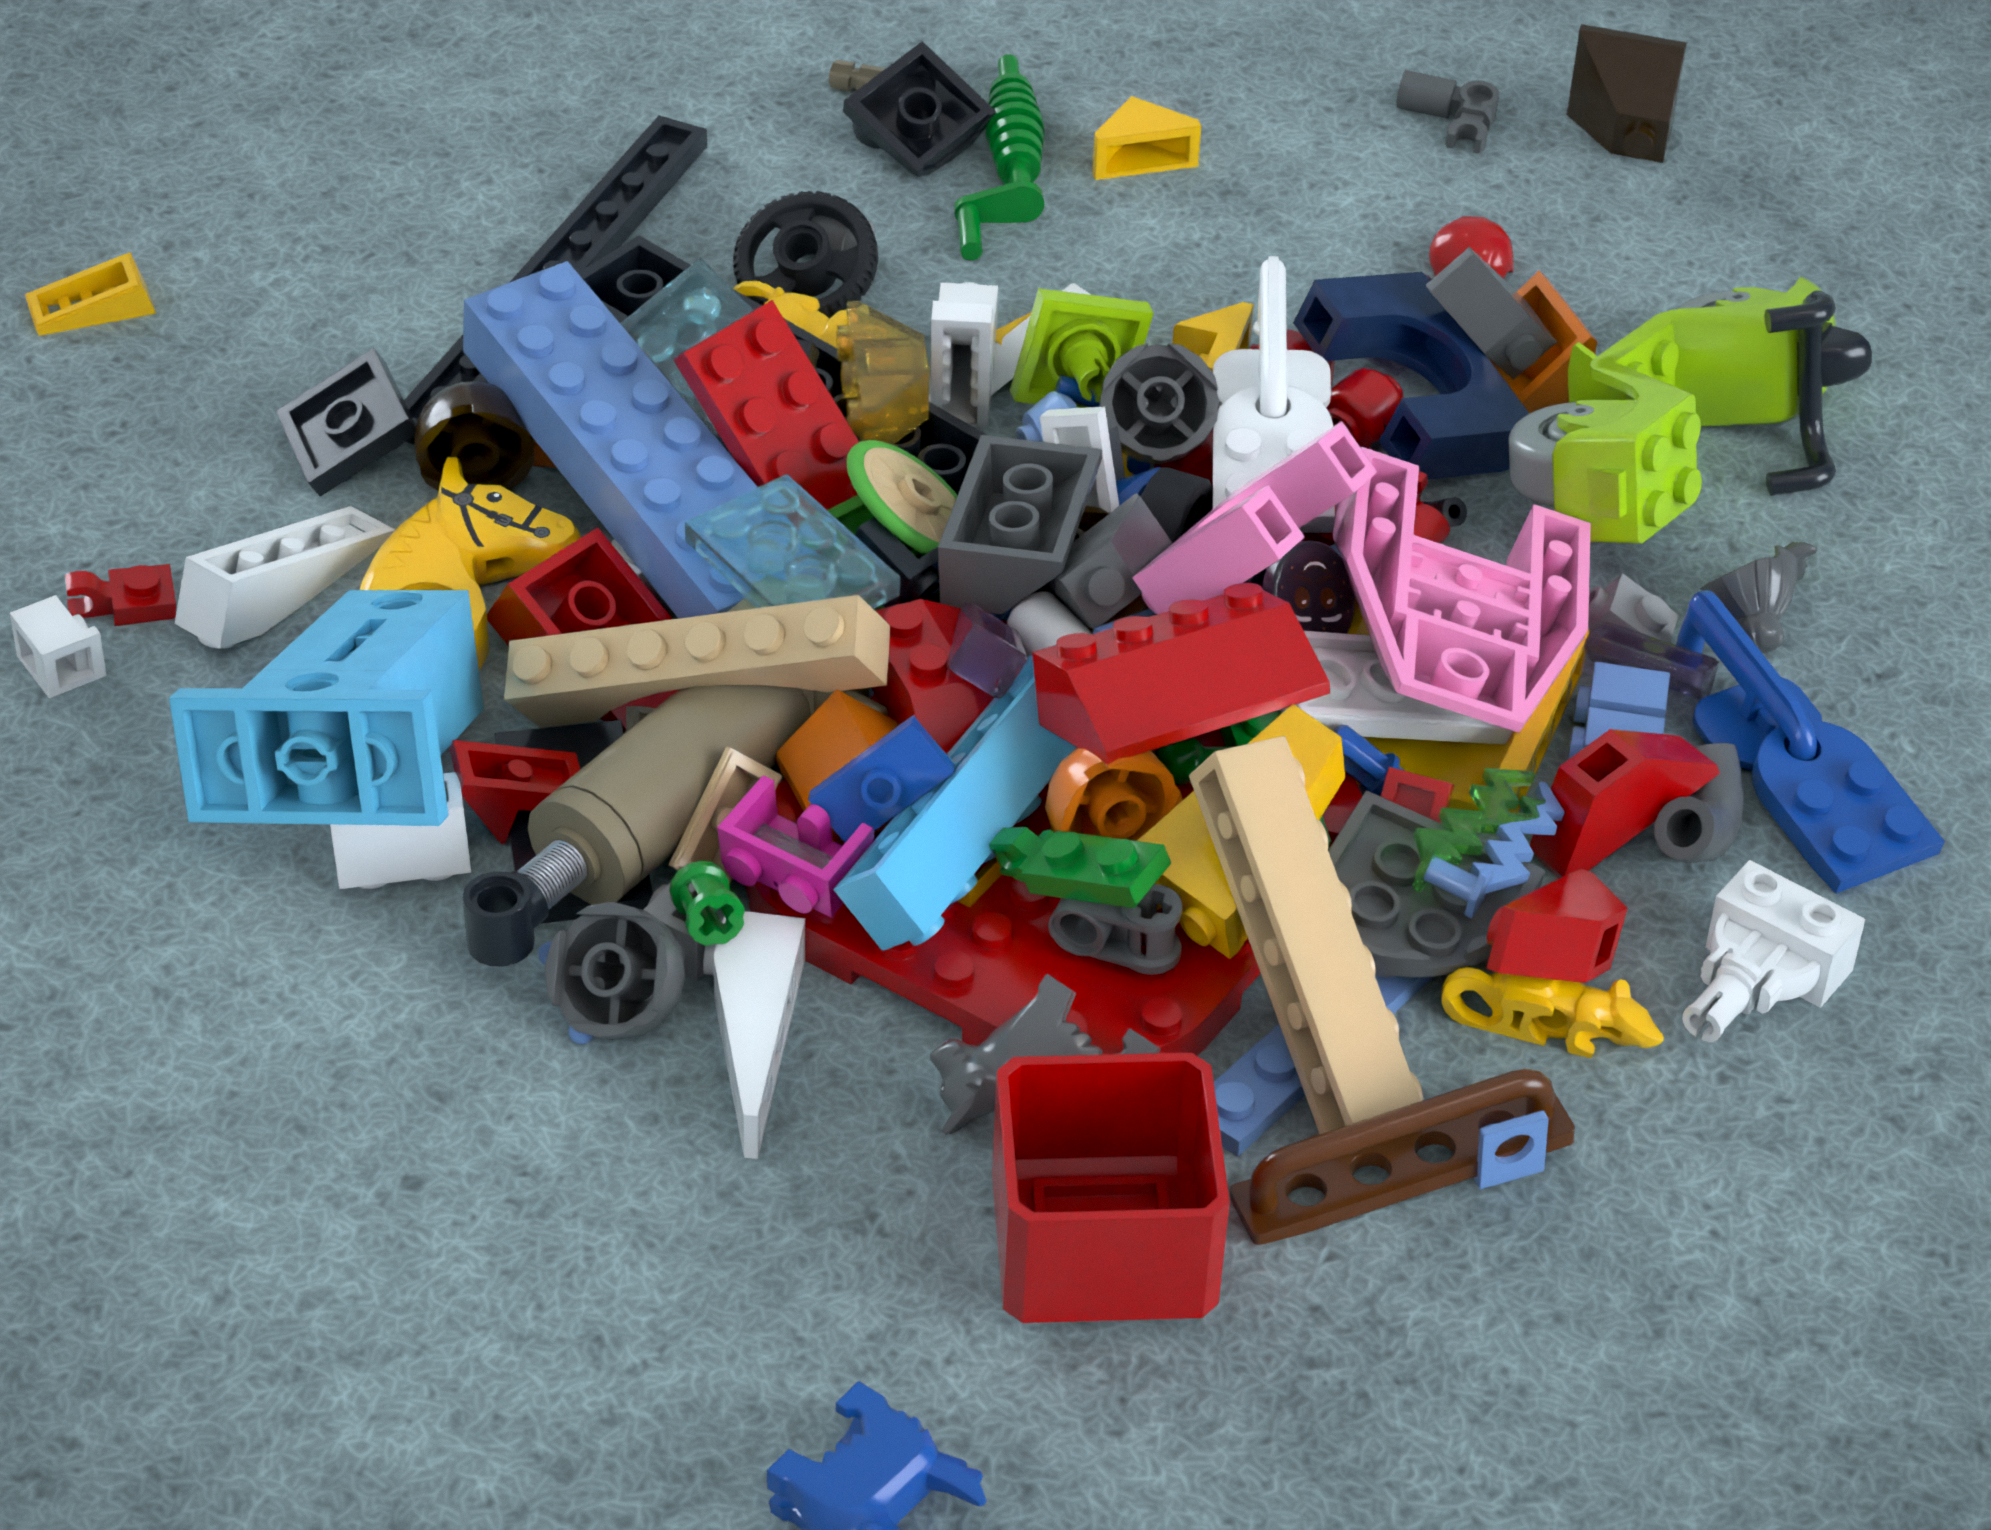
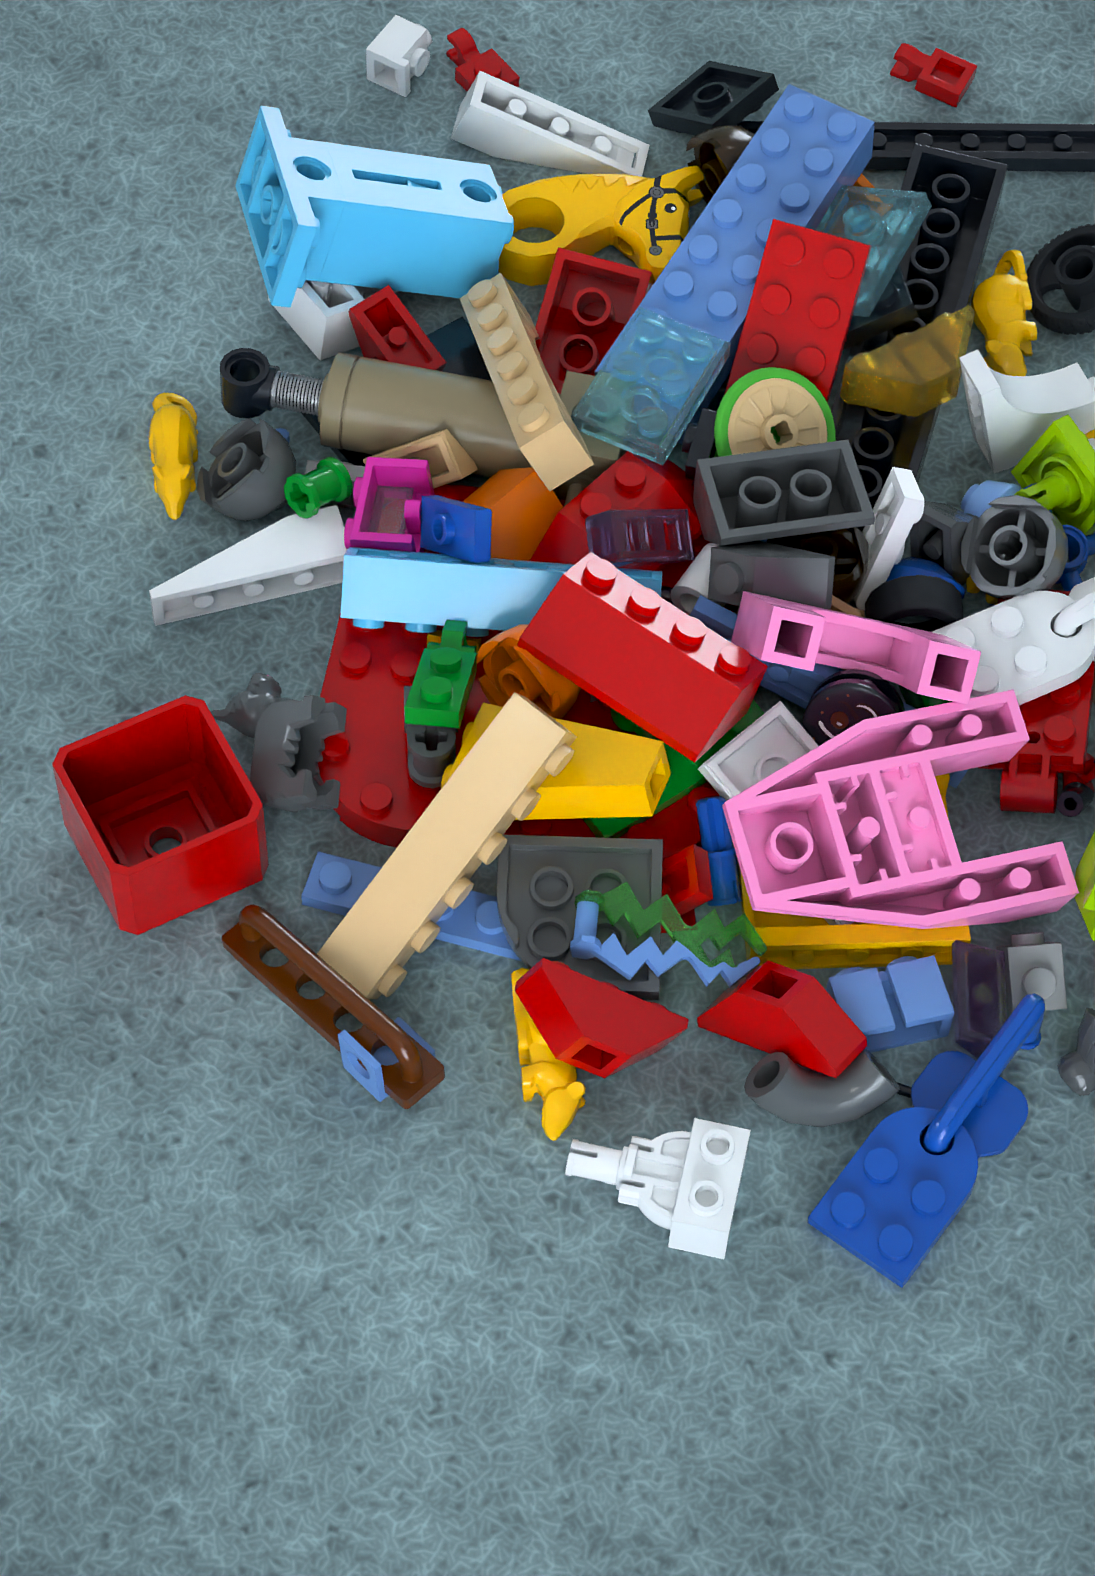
camera: 65 degrees right, 15 degrees up
(436, 257) = (938, 75): none -> red plate
(509, 1041) = (173, 450): none -> yellow animal

